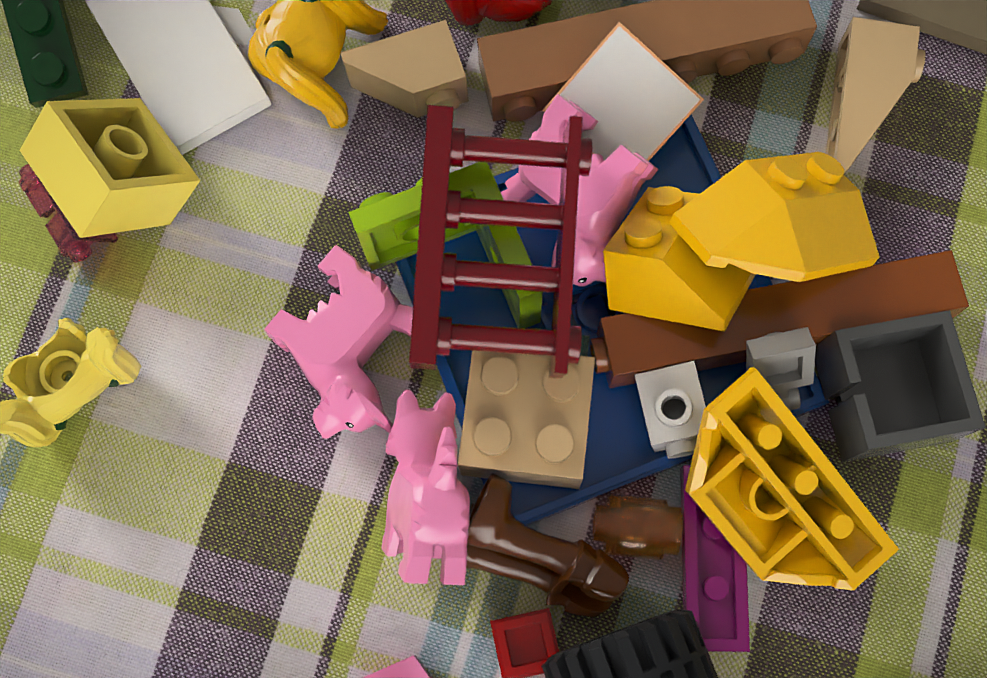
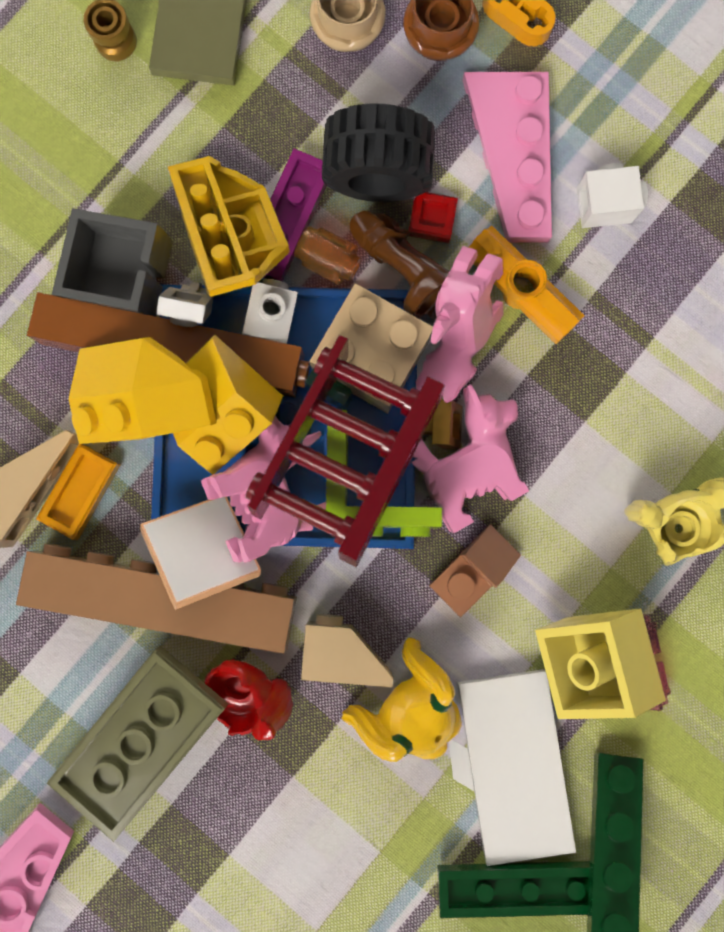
camera: 160 degrees left, 10 degrees up
(295, 228) = (475, 570): none -> nougat slope
(332, 580) = (545, 304): none -> light orange piece
(394, 372) = (446, 425): none -> pearl gold tile
(797, 114) = (78, 492): none -> light orange tile

